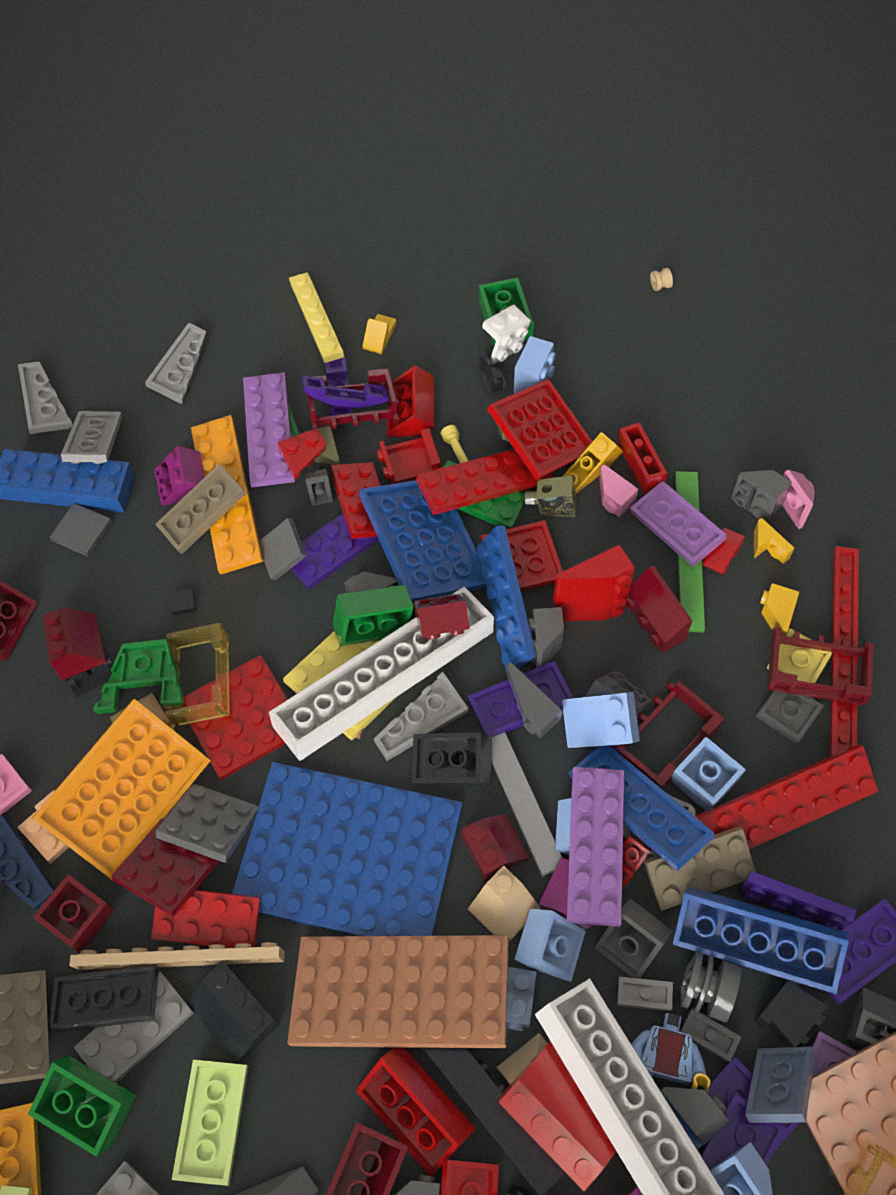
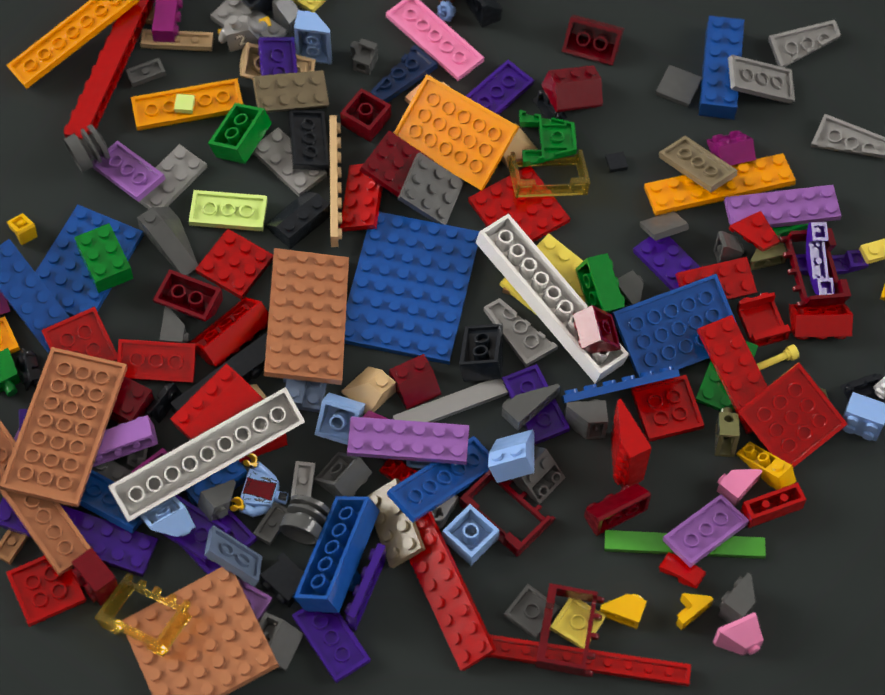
camera: 85 degrees right, 0 degrees up
(54, 735) = (501, 87): none -> dark purple plate
(300, 1109) = (234, 264): none -> red plate

